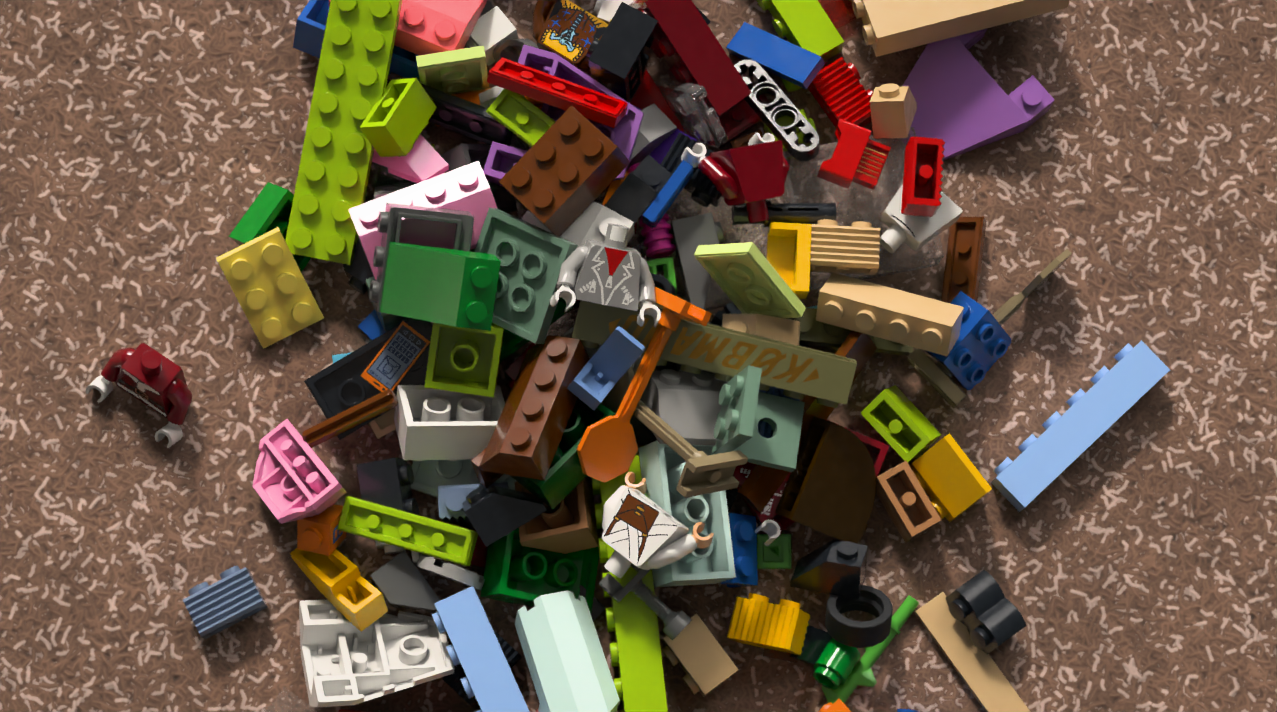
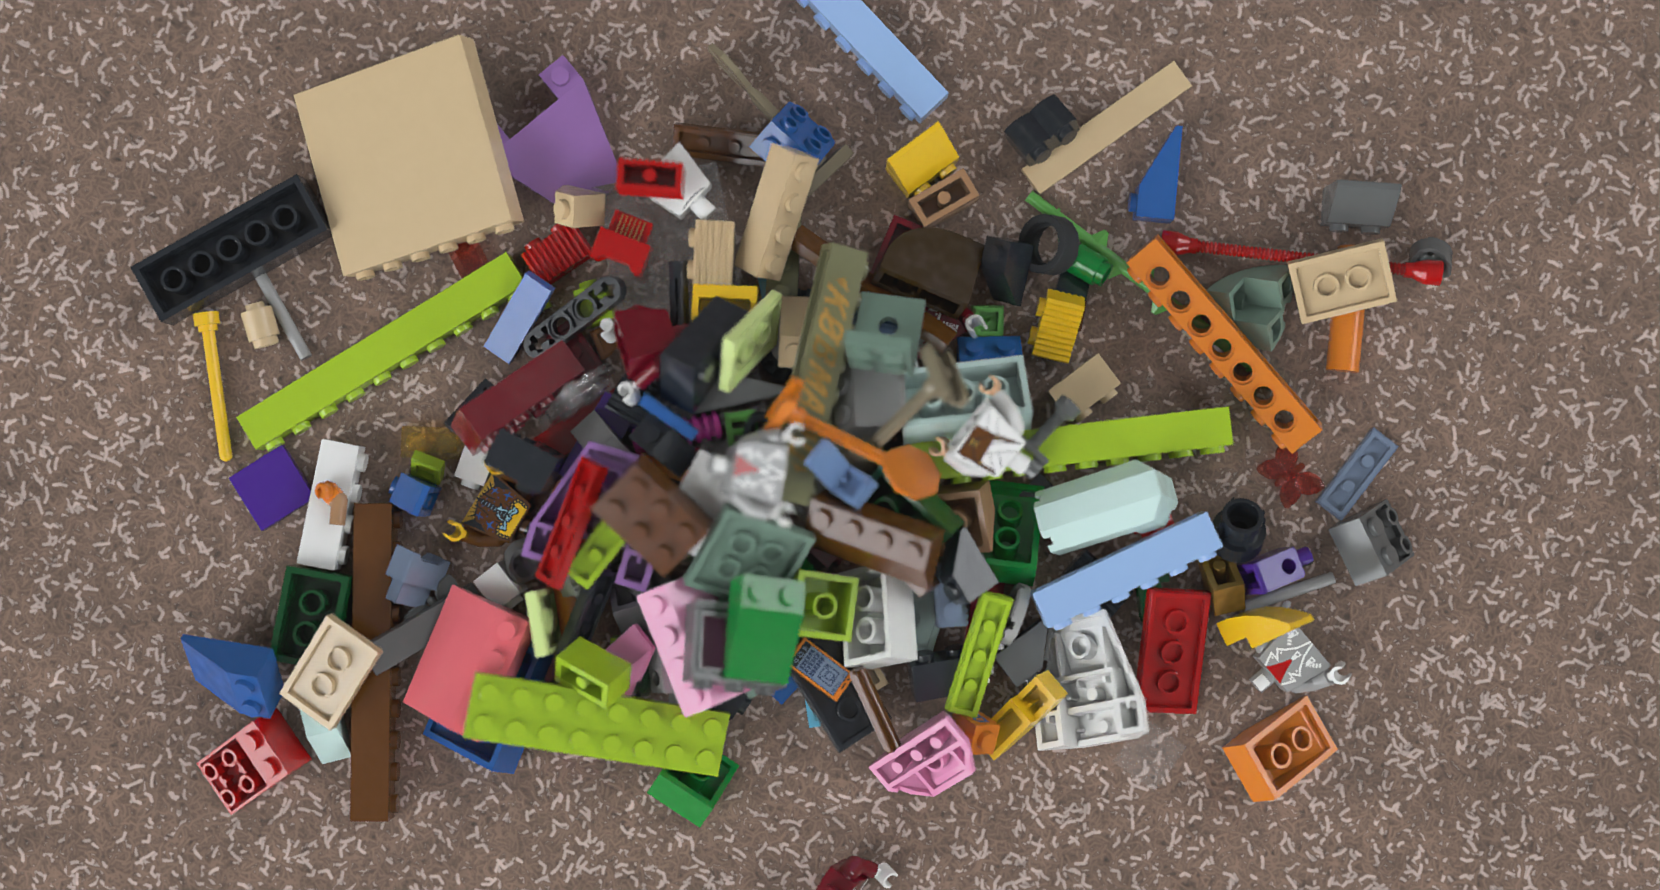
camera: 85 degrees left, 10 degrees up
(224, 602) = (1039, 817): sand blue brick -> none
(270, 287) = (749, 787): light yellow plate -> none
(728, 215) = (694, 357): none -> black wedge
(901, 423) = (871, 203): lime brick -> none

